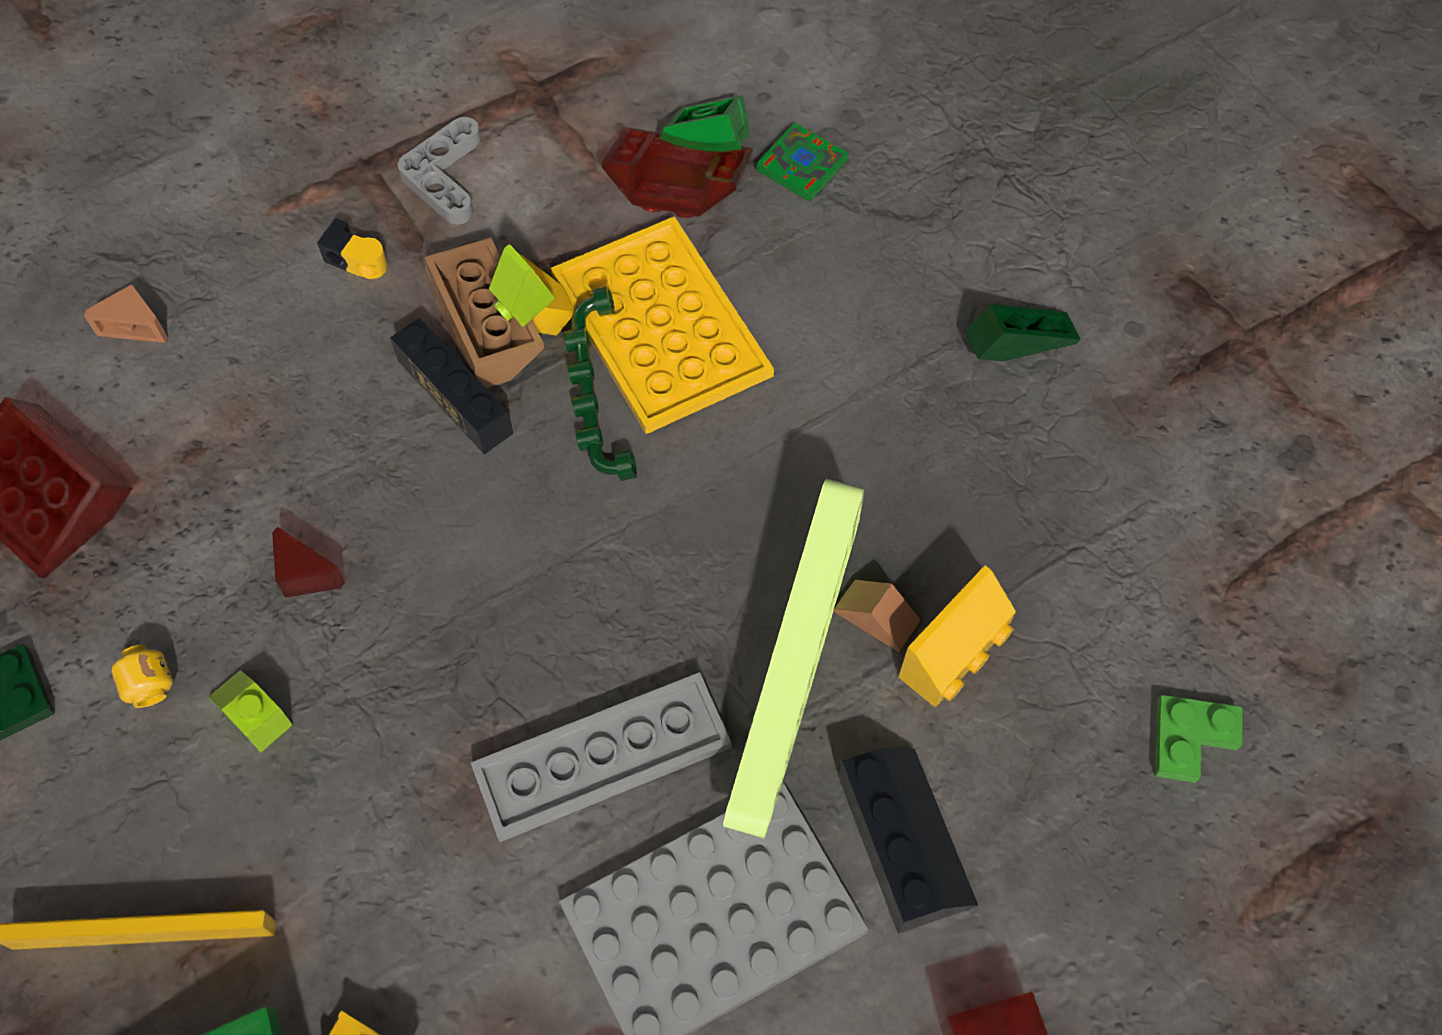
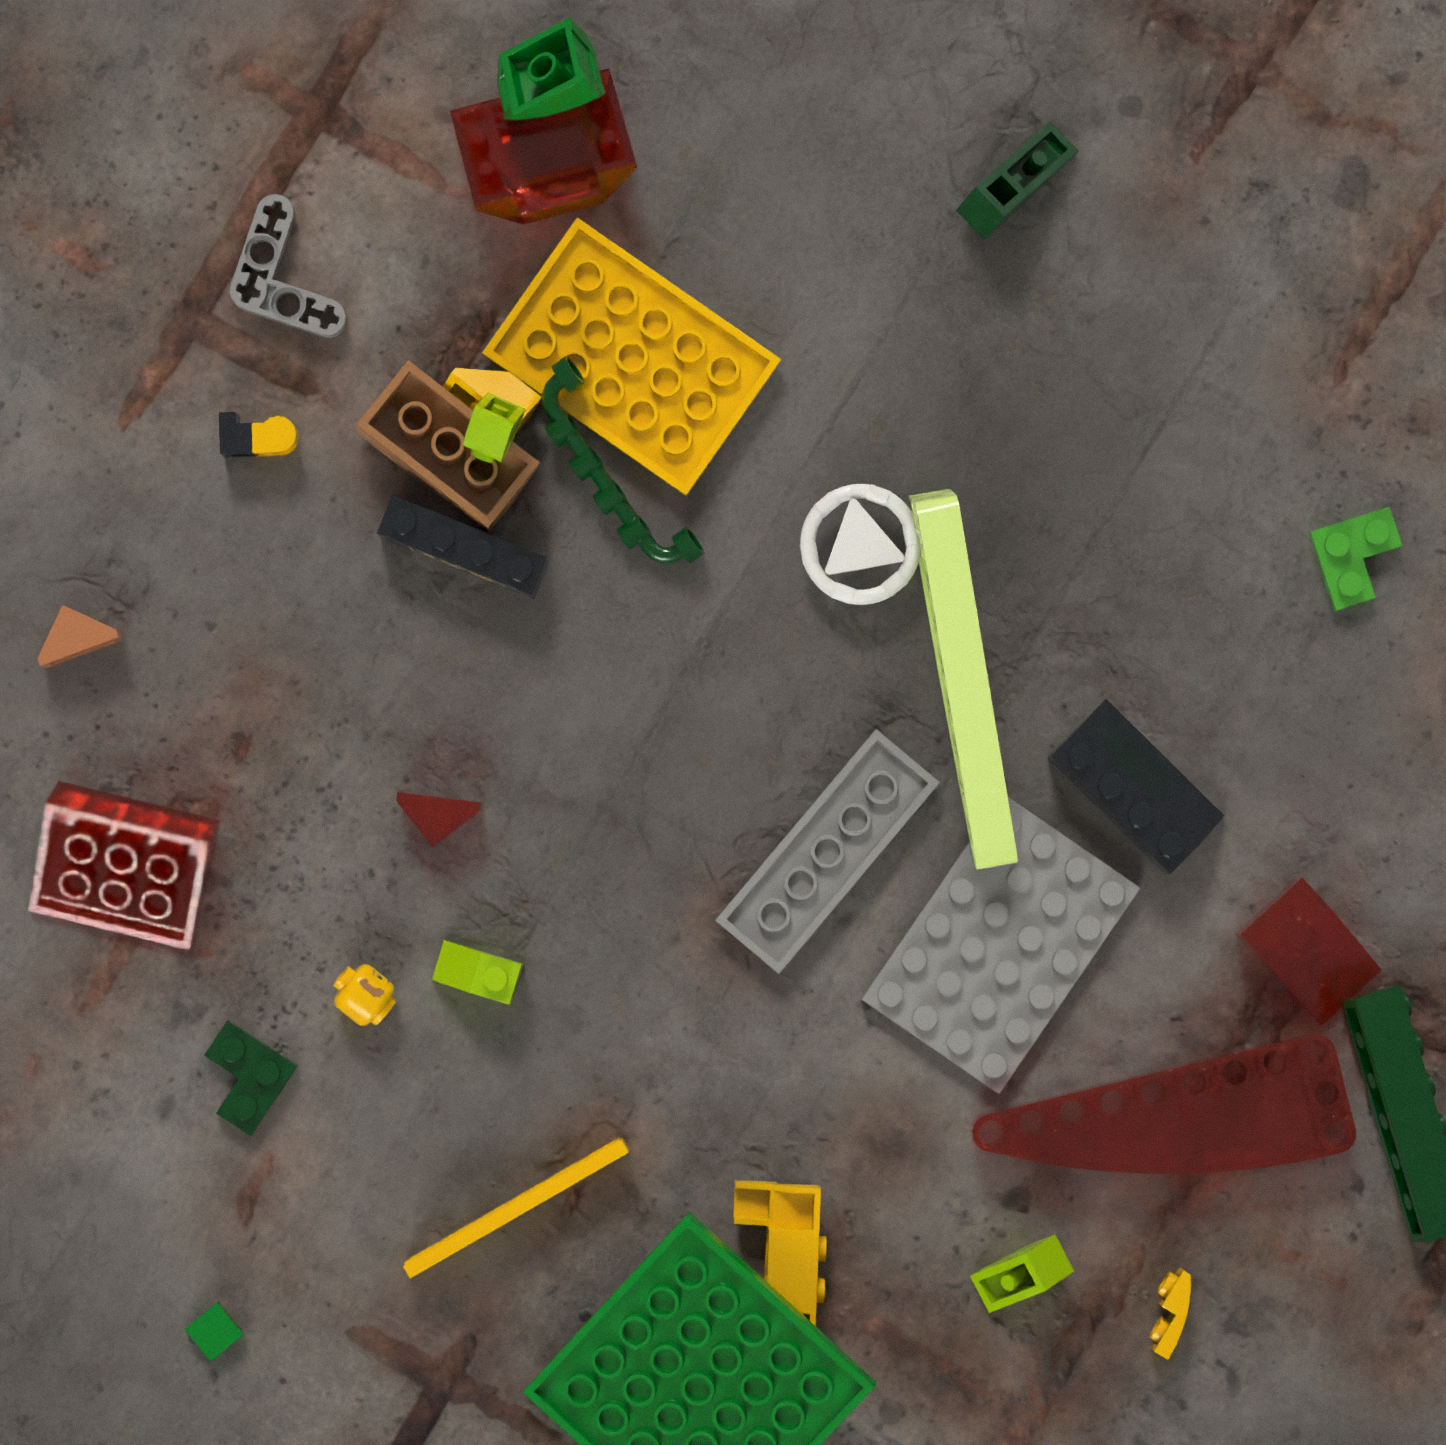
camera: 25 degrees left, 25 degrees up
(761, 522) = (860, 544): none -> white piece
(802, 162) = (674, 60): green tile -> none
(879, 612) = (1011, 578): nougat slope -> none
(958, 639) = (1103, 576): yellow slope -> none

